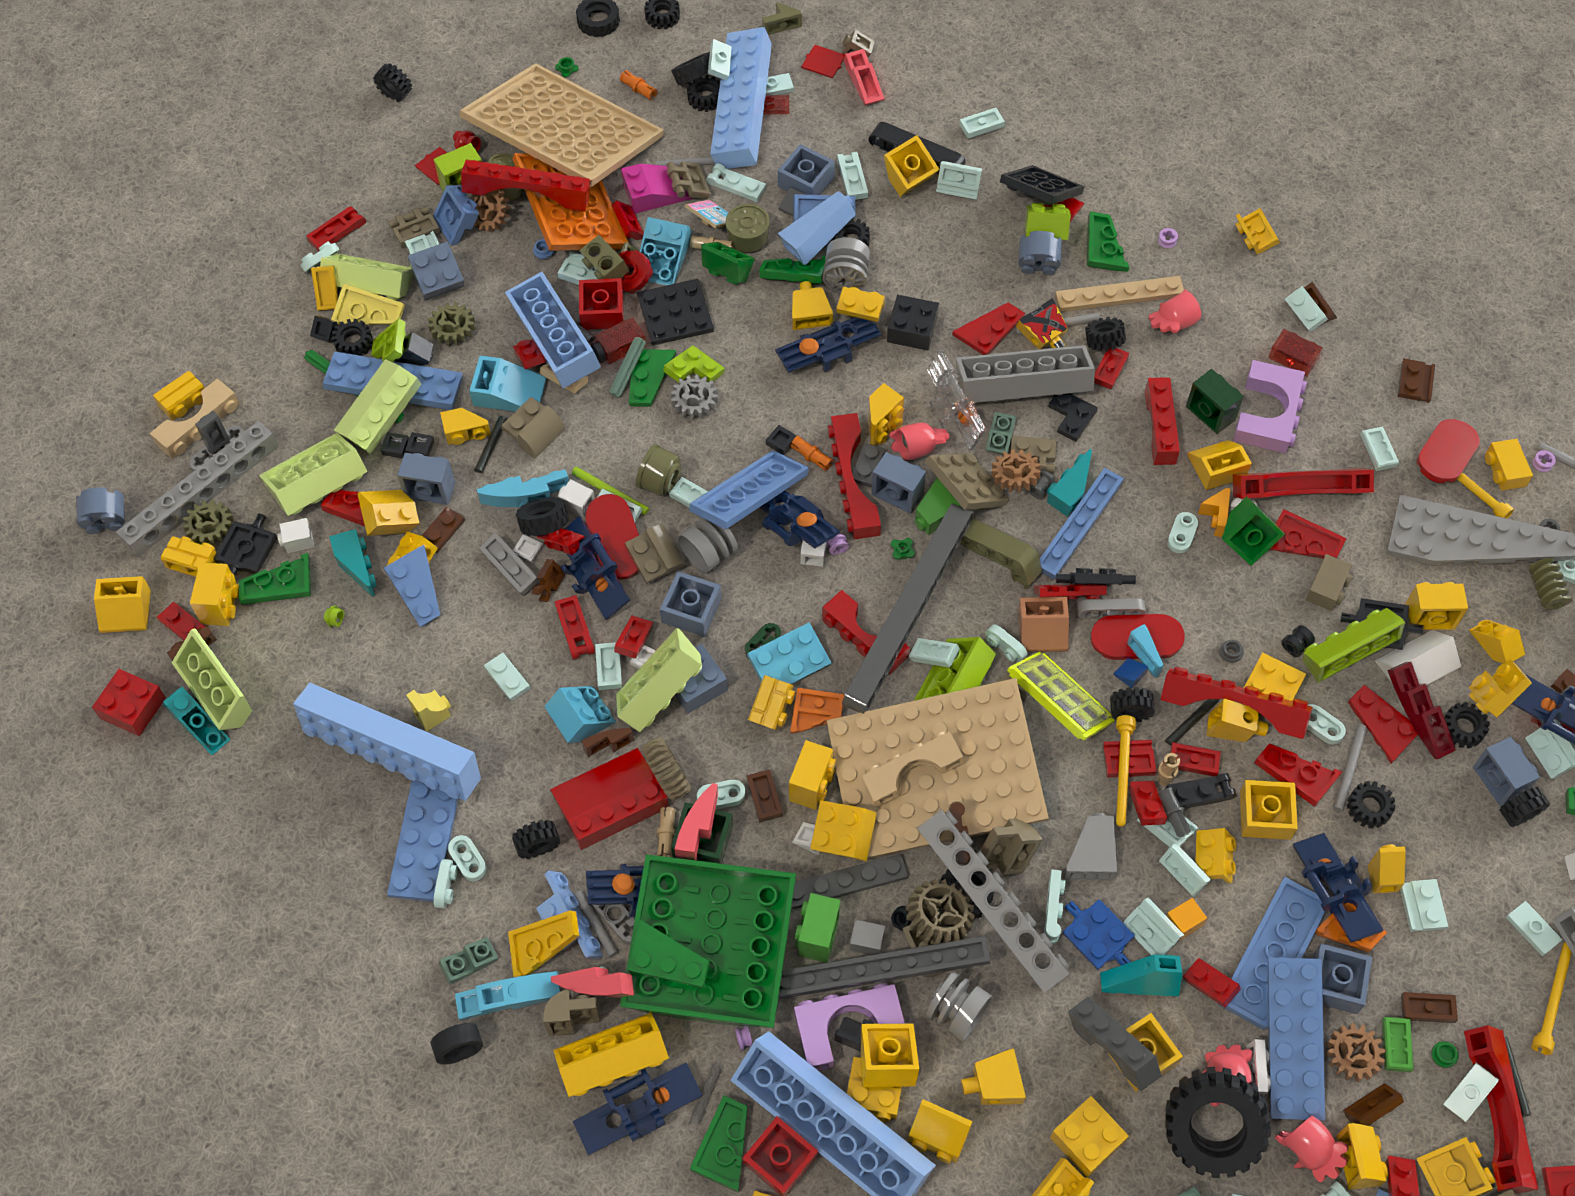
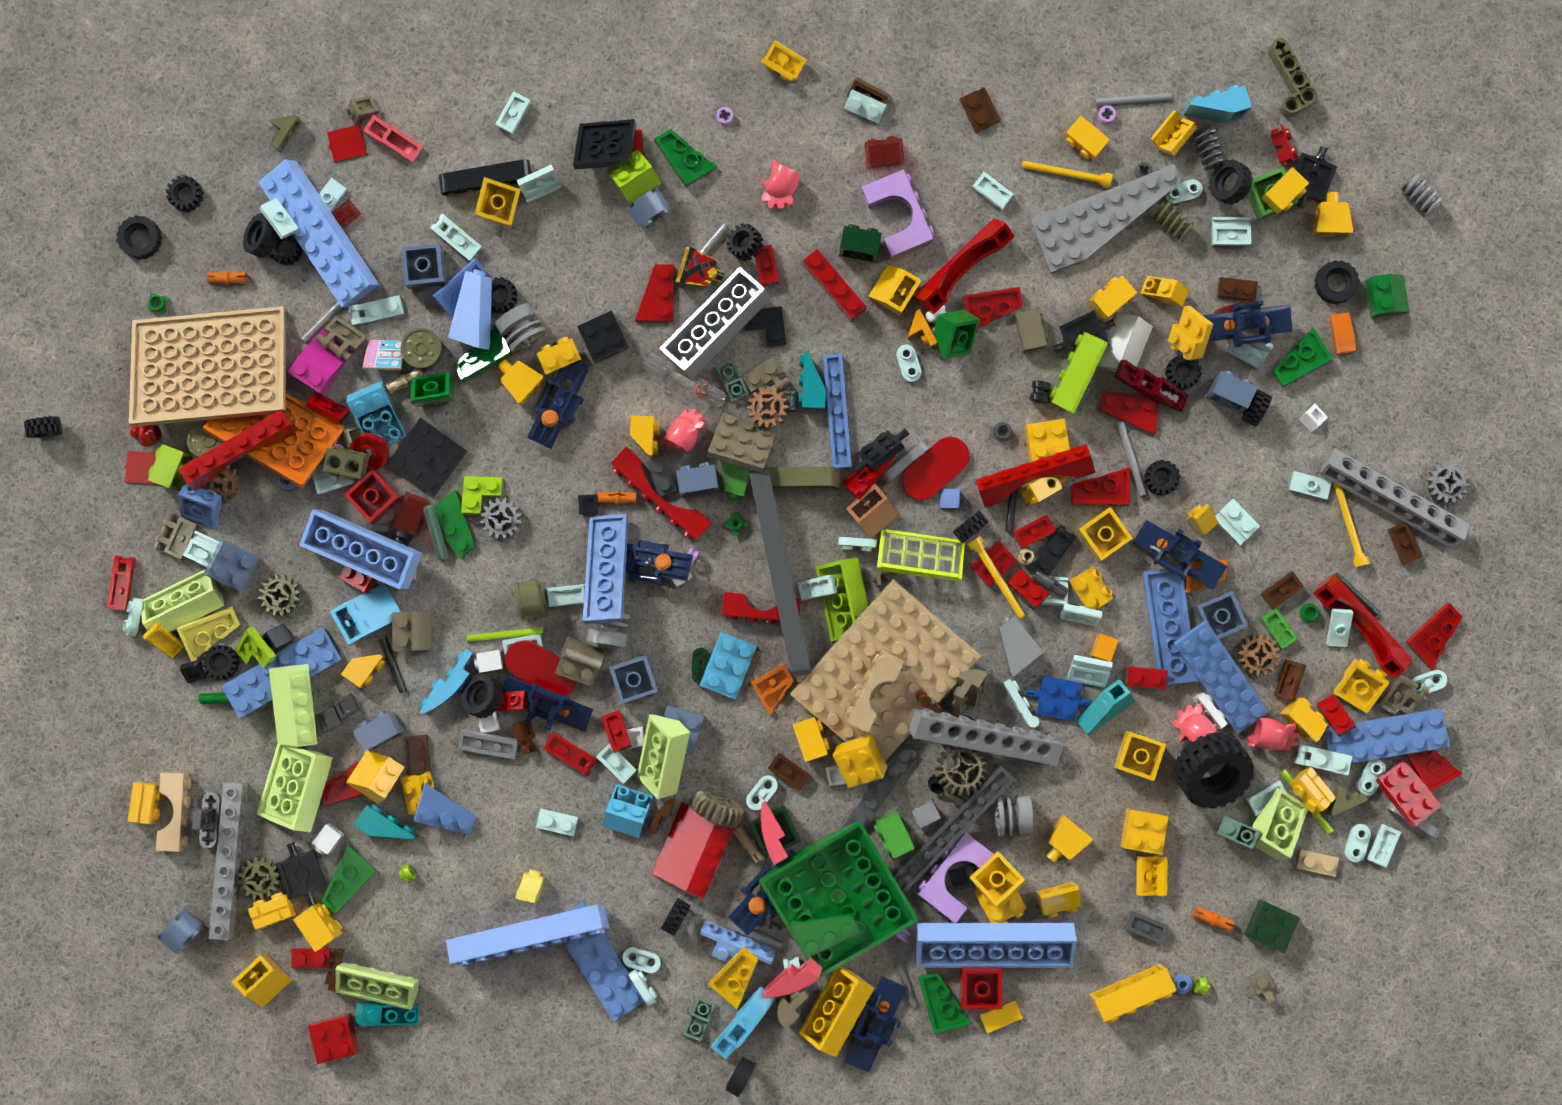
camera: 35 degrees left, 25 degrees up
(771, 703) = (744, 708): yellow brick -> none
(1118, 293) = (726, 193): tan plate -> none
(1131, 1056) = (1122, 768): dark grey arch -> none
(1144, 647) = (949, 478): medium azure slope -> none
(1324, 723) = (1095, 441): light aqua plate -> none
(1448, 451) = (1040, 158): tile -> none

